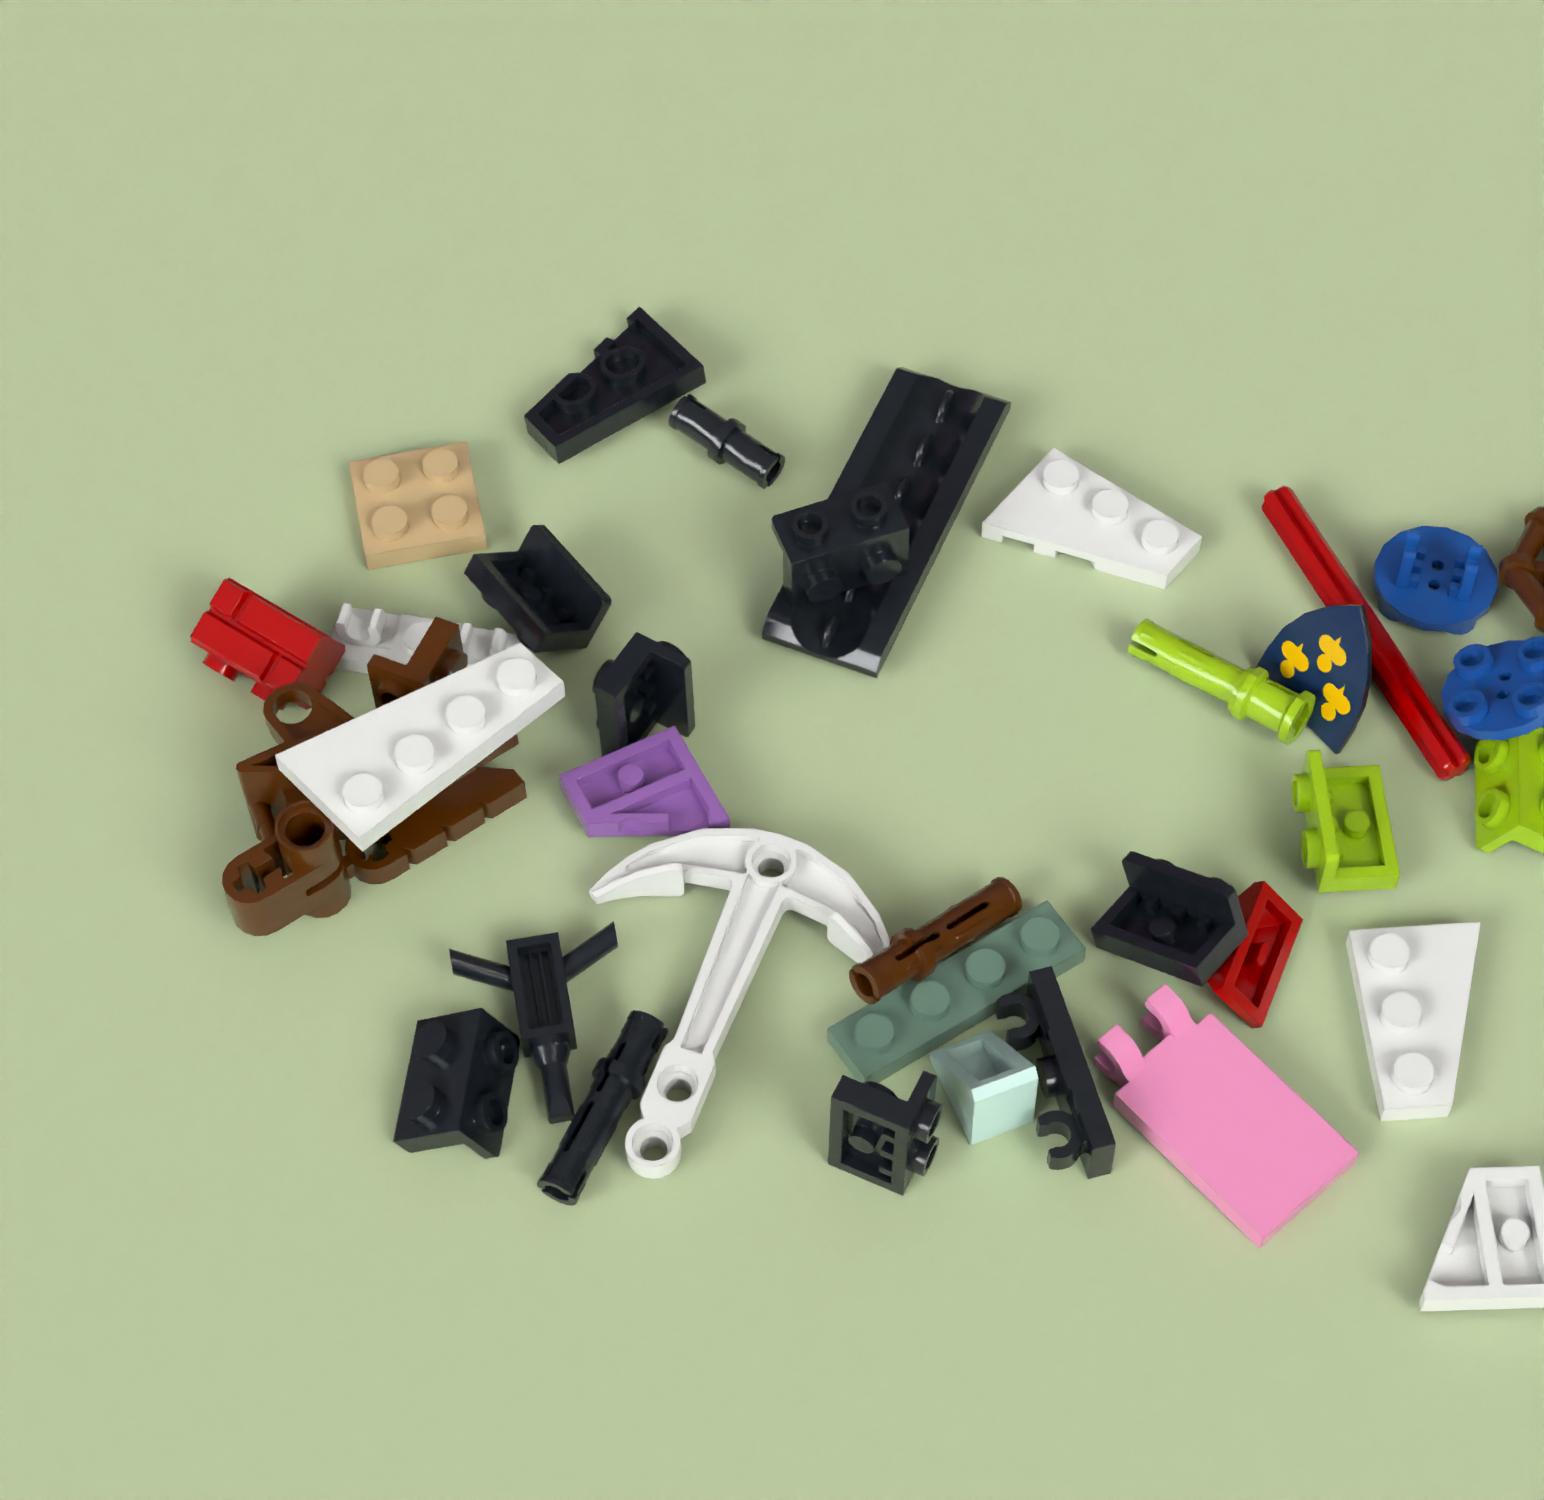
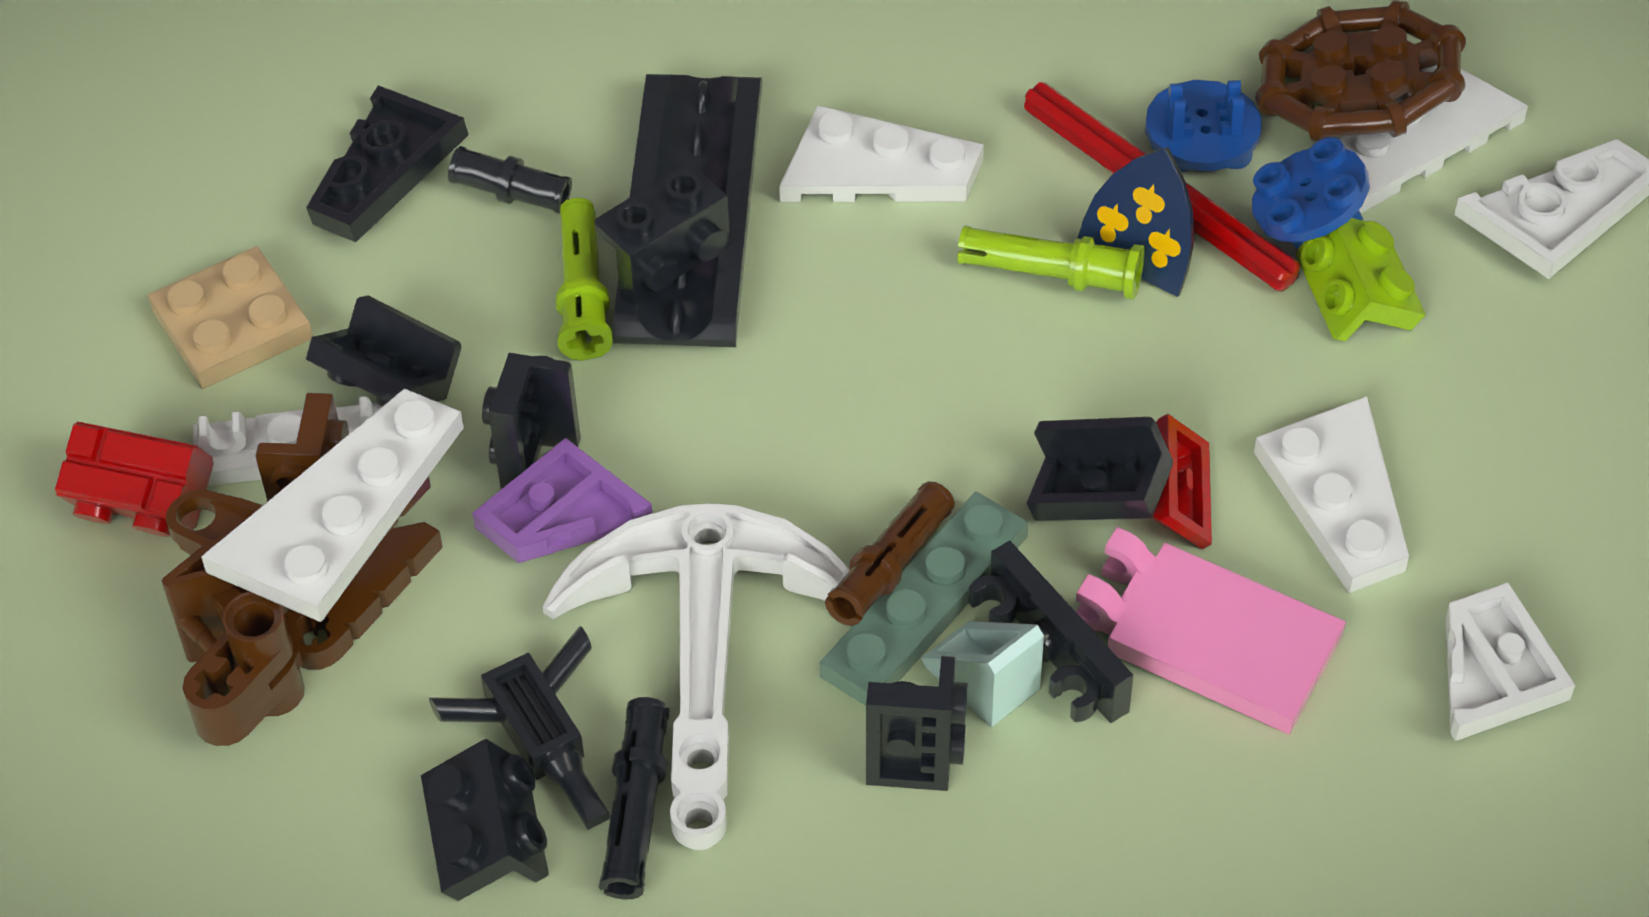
camera: 20 degrees left, 5 degrees down
(749, 583) = (582, 296): none -> lime pin
(1347, 826) = (1216, 350): lime bracket -> none

